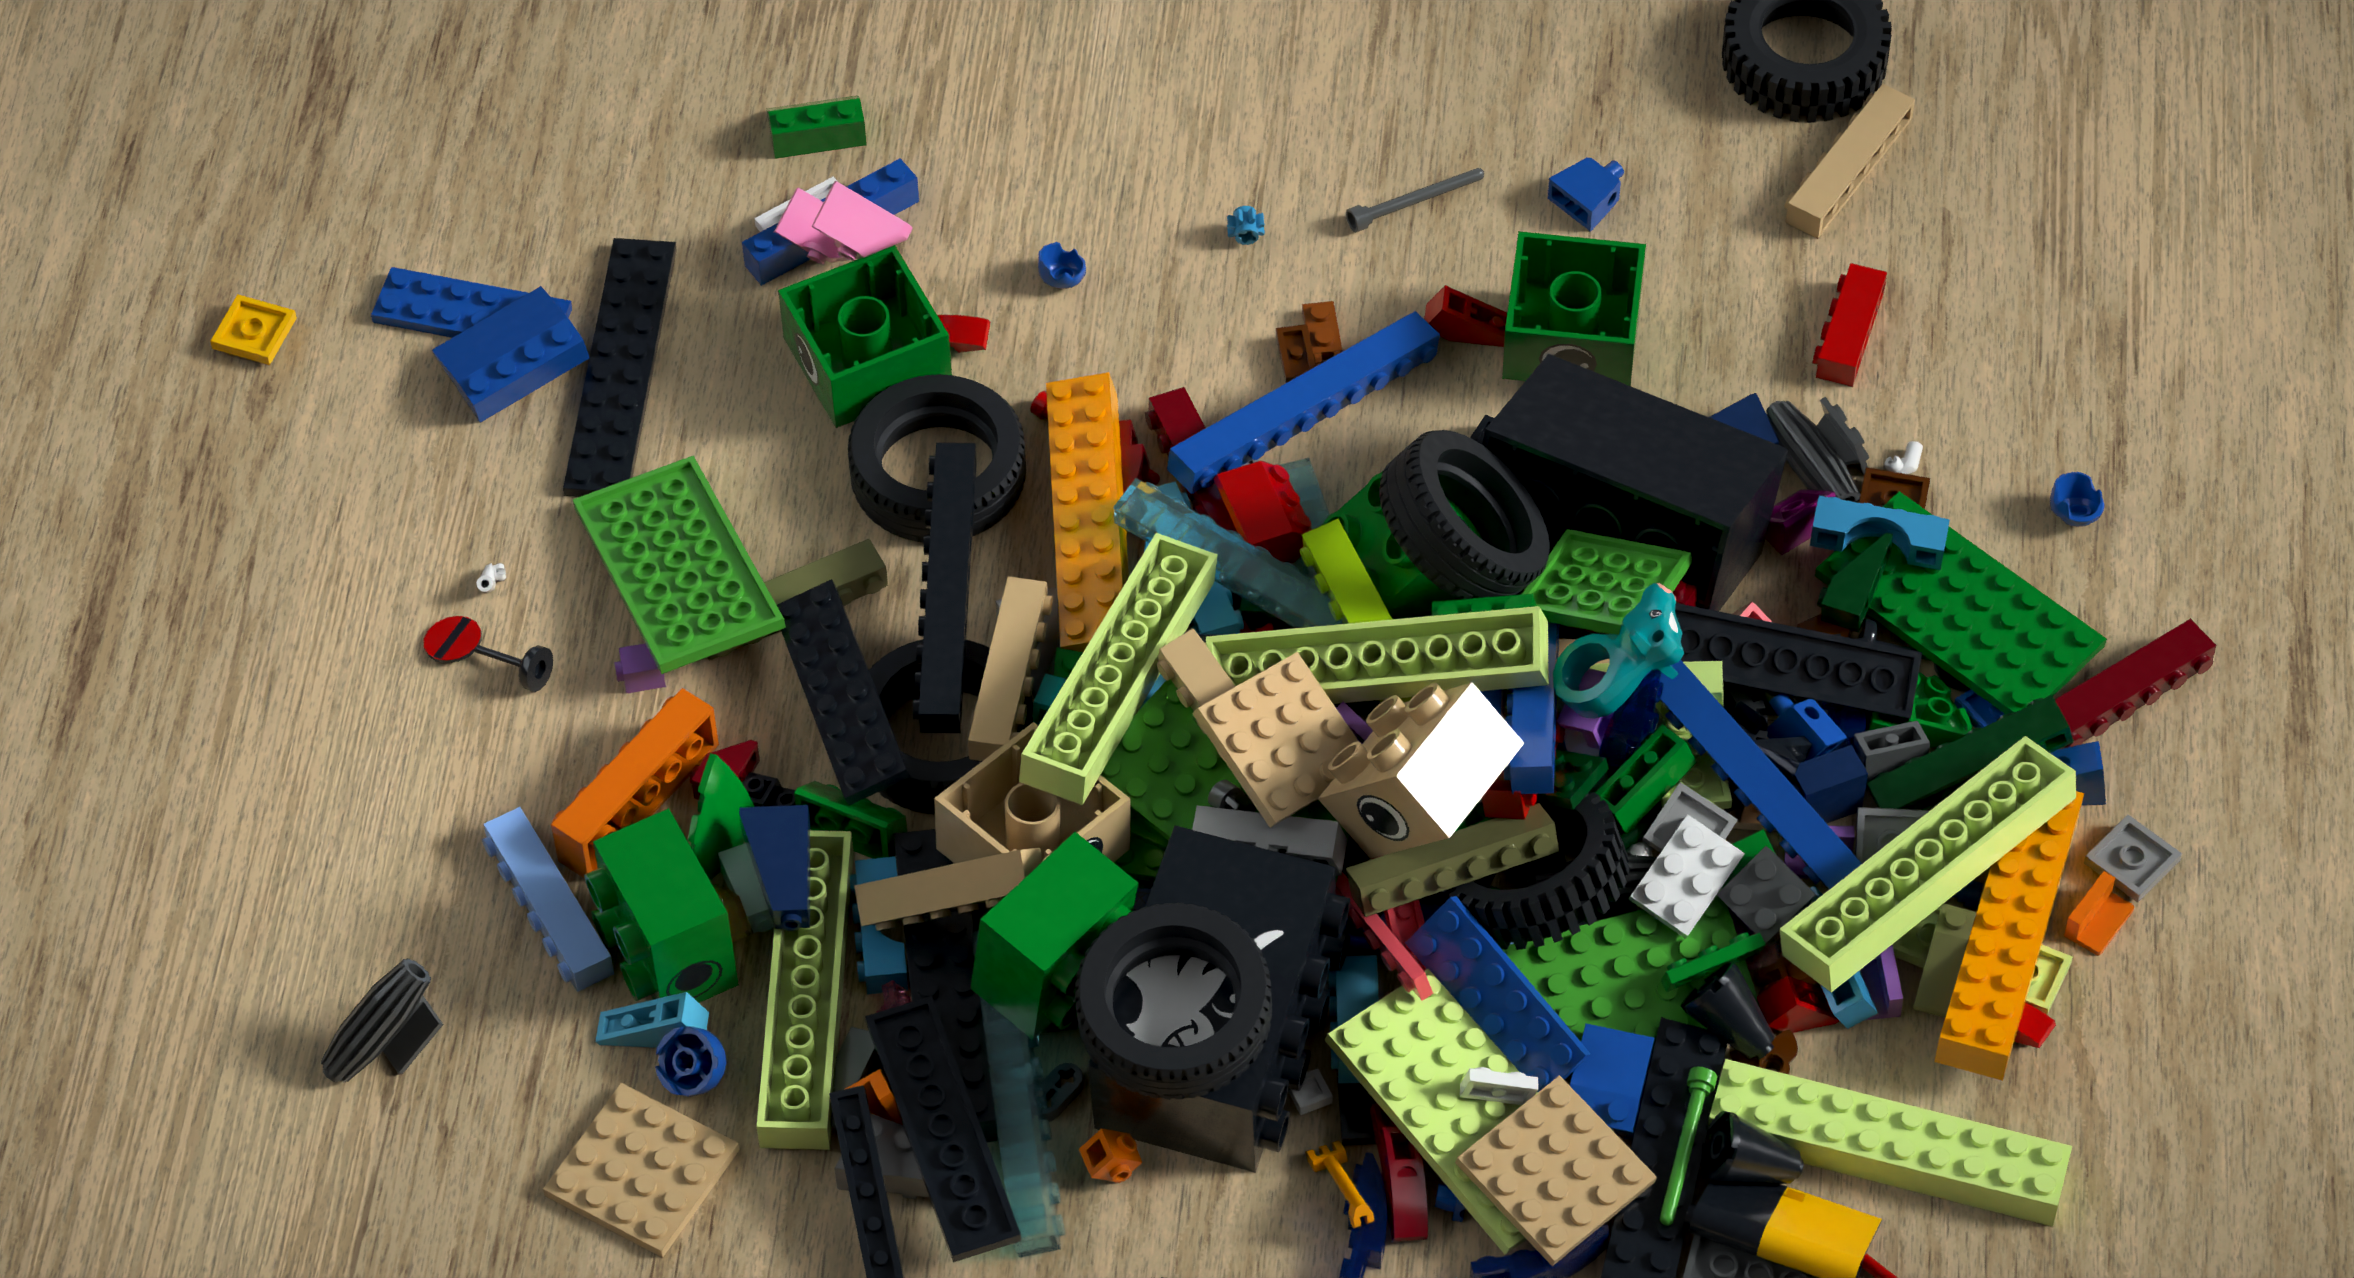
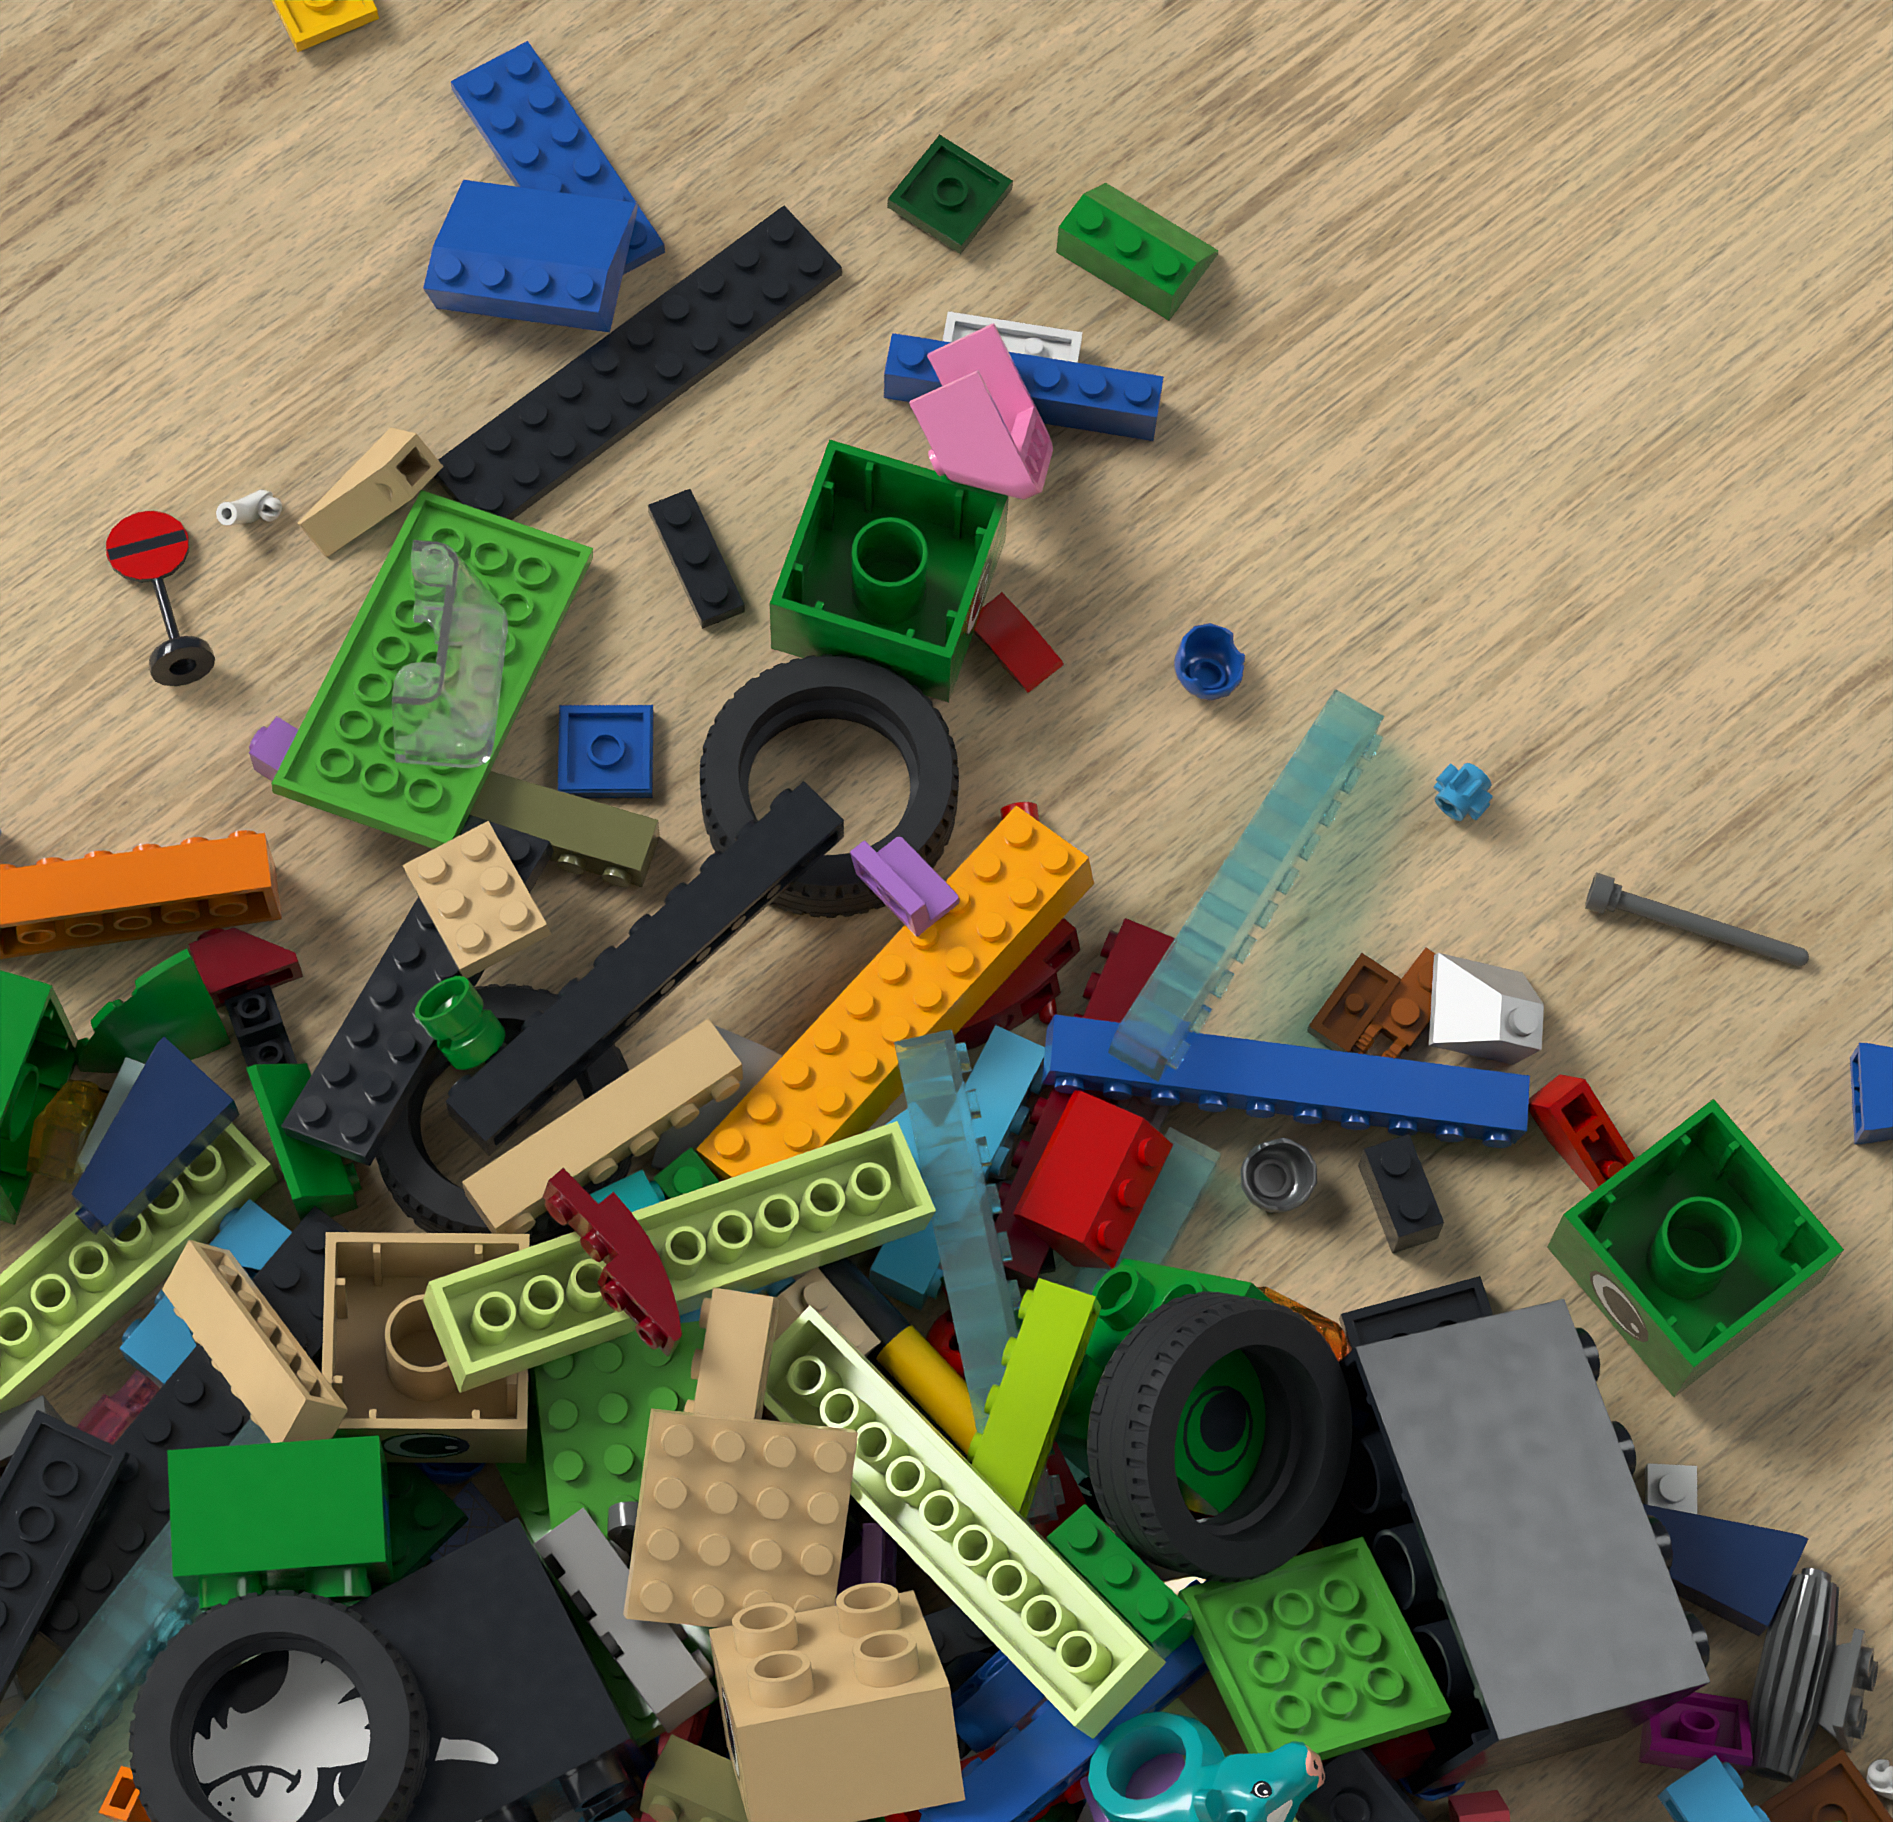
camera: 40 degrees right, 15 degrees up
(547, 516) = (371, 490): none -> tan slope
(665, 519) = (450, 707): none -> clear windscreen
(694, 169) = (950, 194): none -> dark green plate
(748, 424) = (696, 558): none -> black plate
(800, 538) = (606, 751): none -> blue tile
(828, 625) = (476, 900): none -> tan plate
(886, 676) = (455, 1018): none -> green wheel
(1032, 454) = (904, 883): none -> medium lavender panel
(1111, 669) = (634, 1272): none -> dark red slope
(1196, 331) = (1245, 887): none -> clear light blue brick
(1345, 448) = (1278, 1175): none -> flat silver hair
(1363, 305) = (1484, 1010): none -> light grey slope
(1408, 409) = (1401, 1193): none -> black brick

